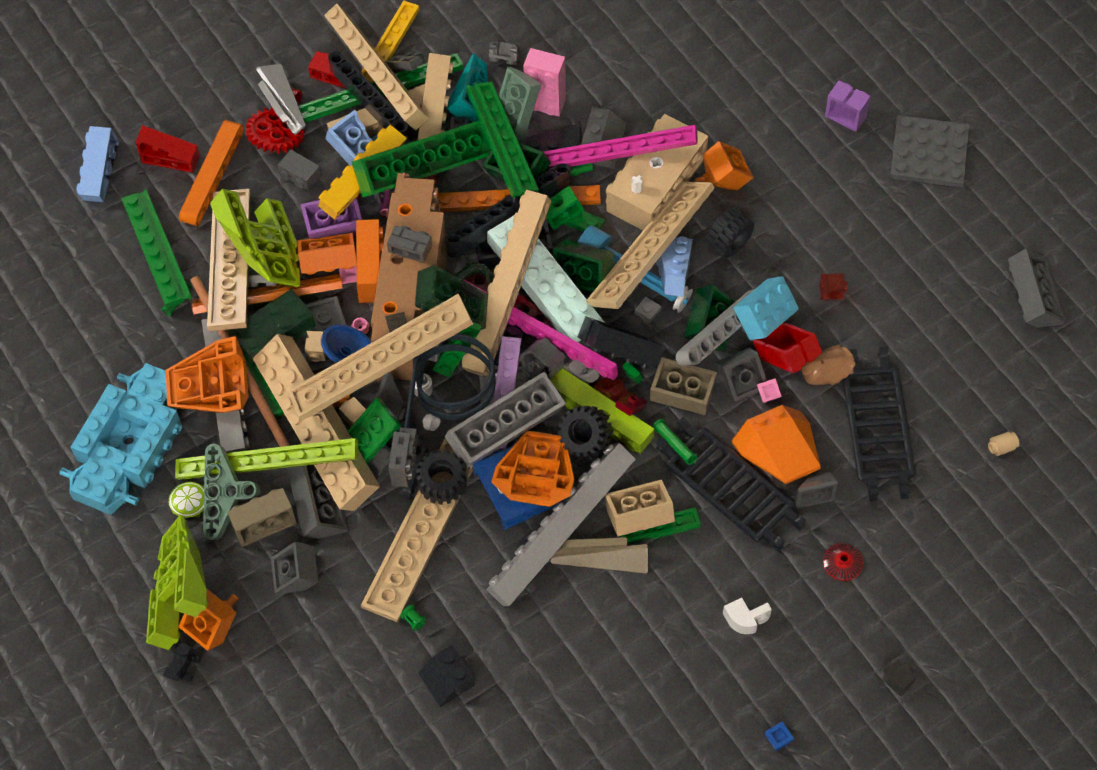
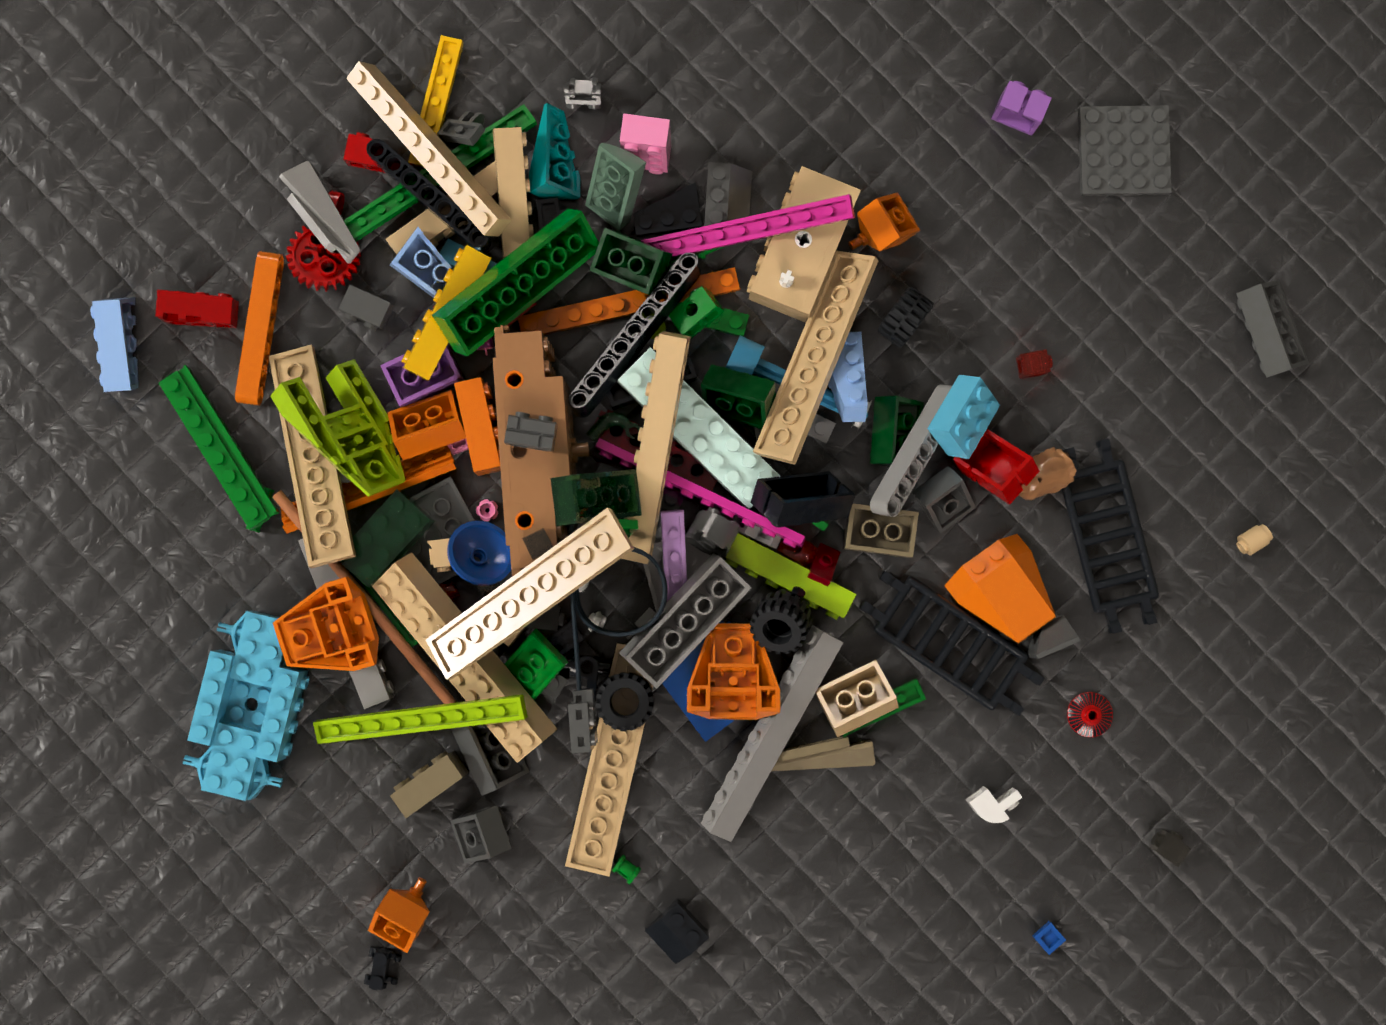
camera: 10 degrees left, 25 degrees up
(178, 585) = (355, 889): lime wedge -> none
(187, 500) = (339, 767): dish -> none
(223, 481) = (377, 748): sand green beam -> none
(501, 139) = (609, 240): green plate -> none
(672, 439) = (882, 604): green pin -> none
(769, 390) = (978, 516): bright pink plate -> none

